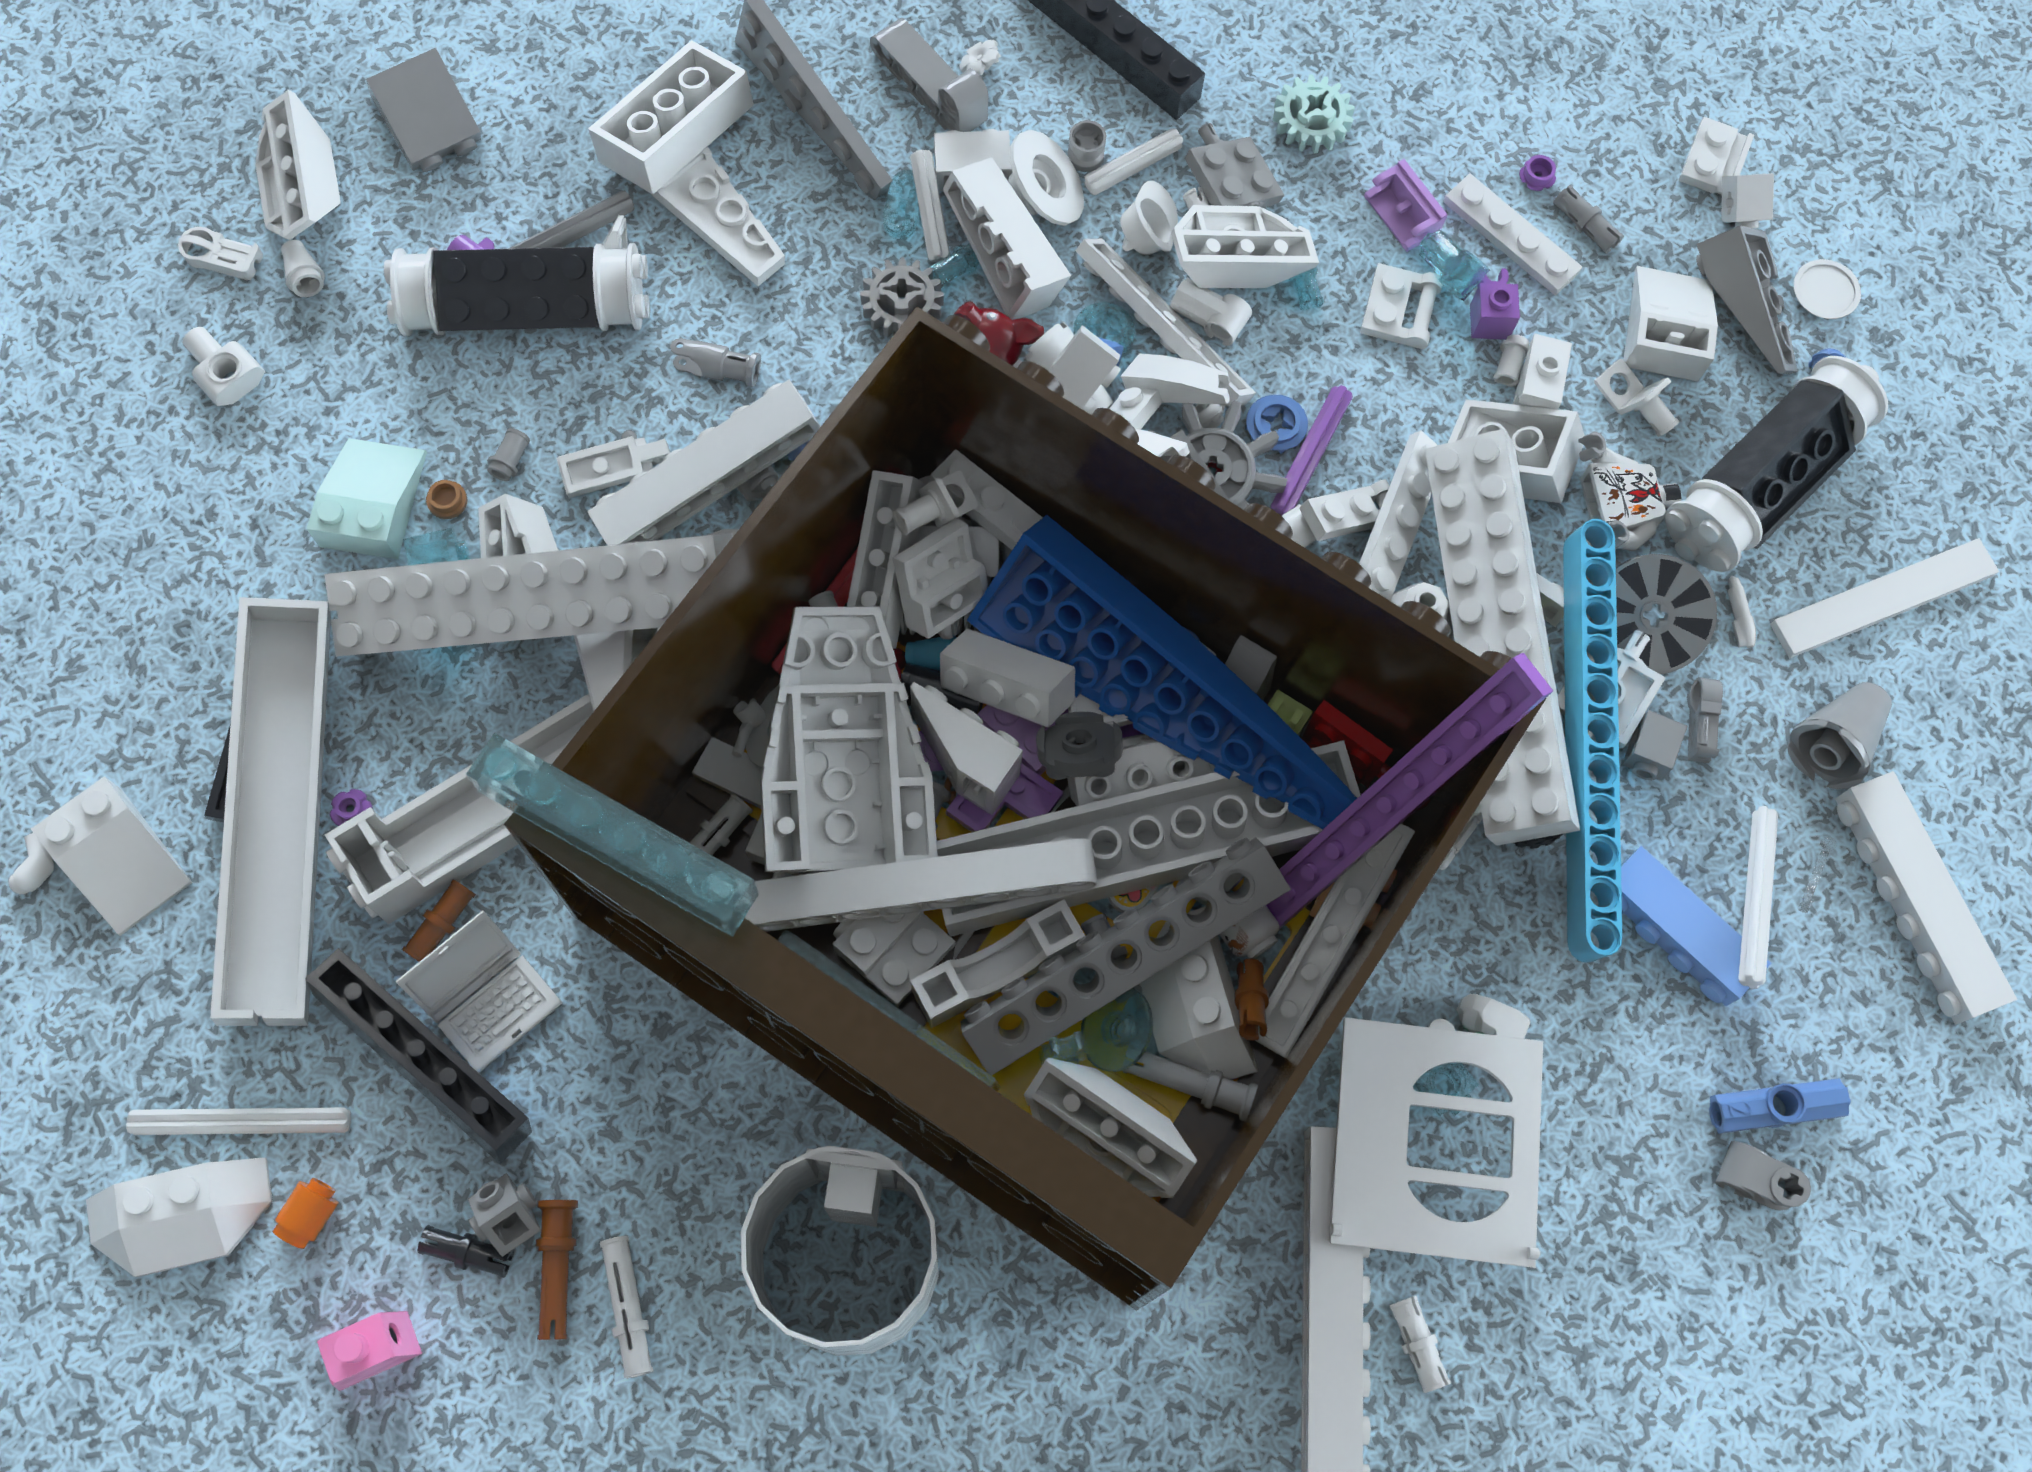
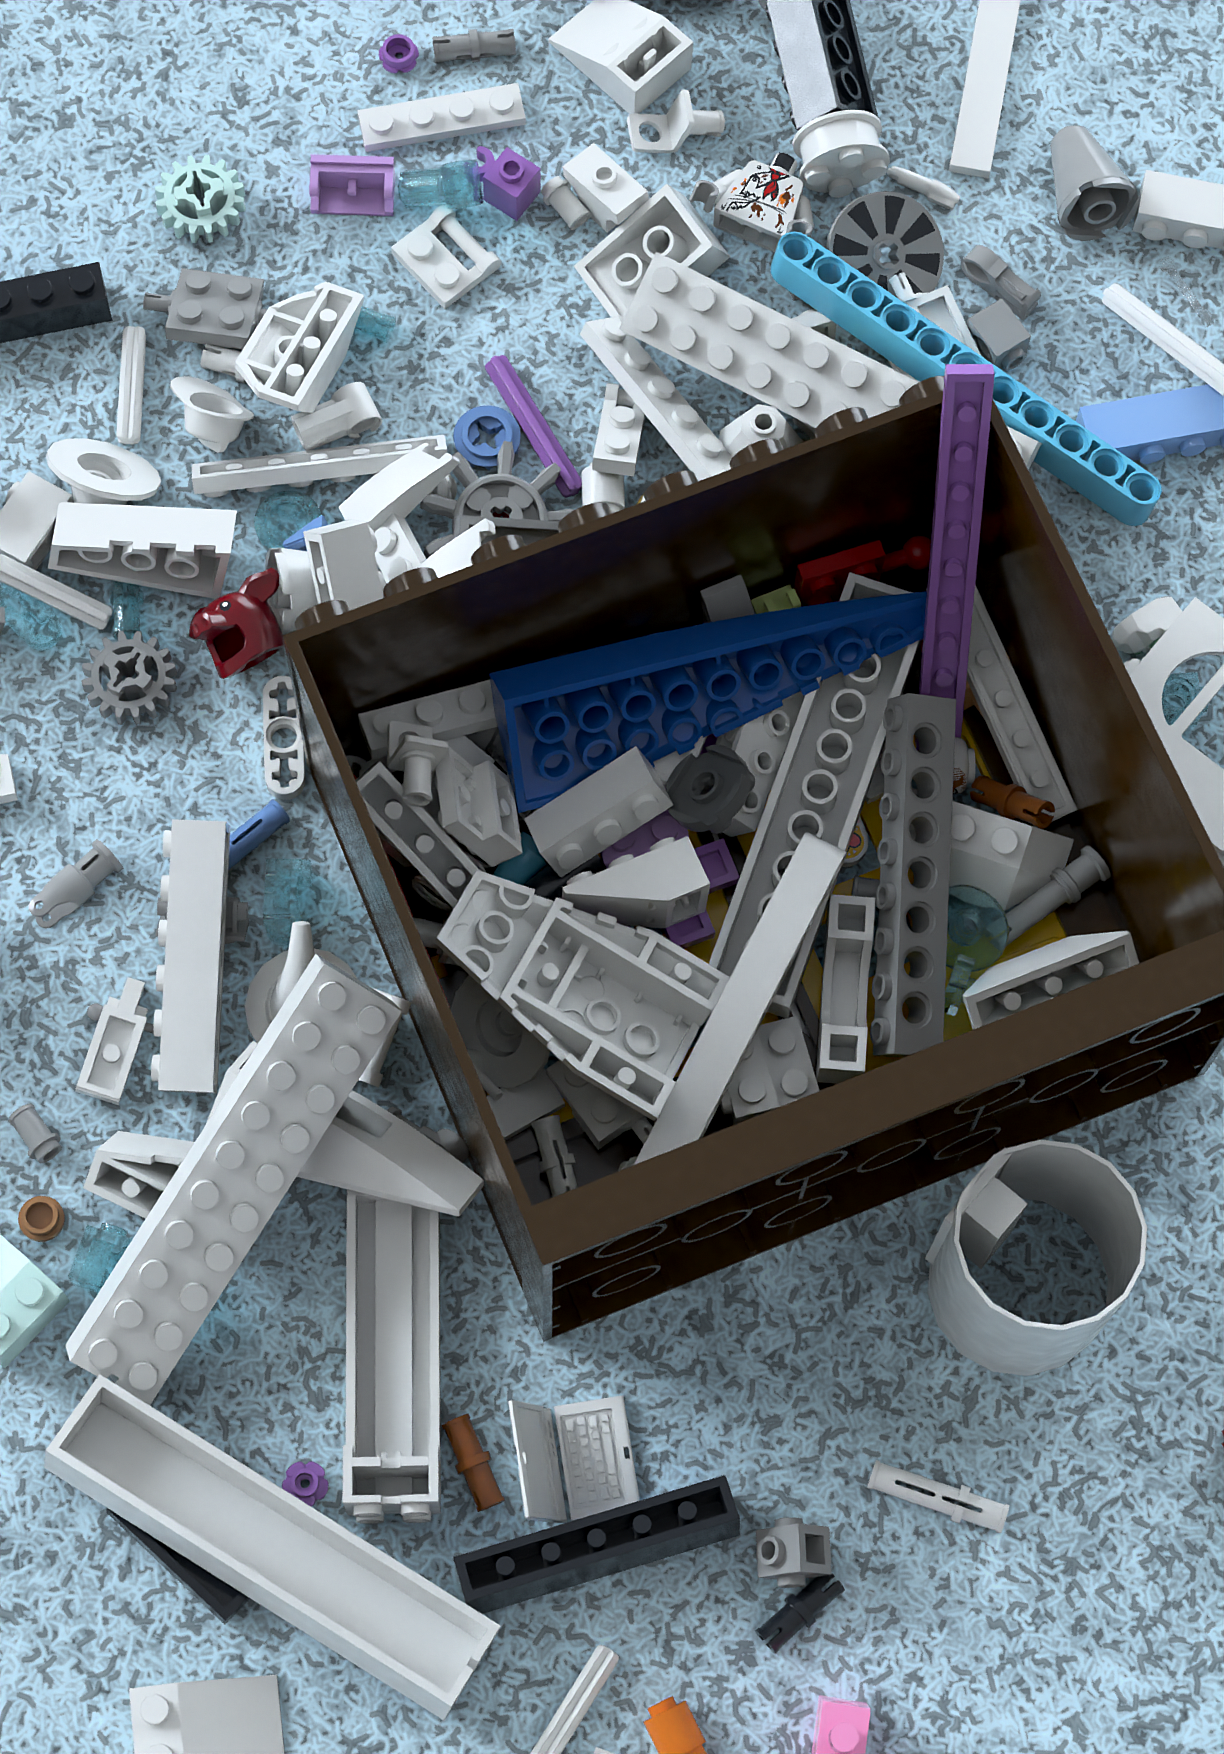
camera: 55 degrees left, 0 degrees up
(555, 1243) = (847, 1527): dark orange pin -> none
(613, 834) = (623, 1173): clear light blue brick -> none
(1087, 145) = (86, 405): light grey wheel -> none

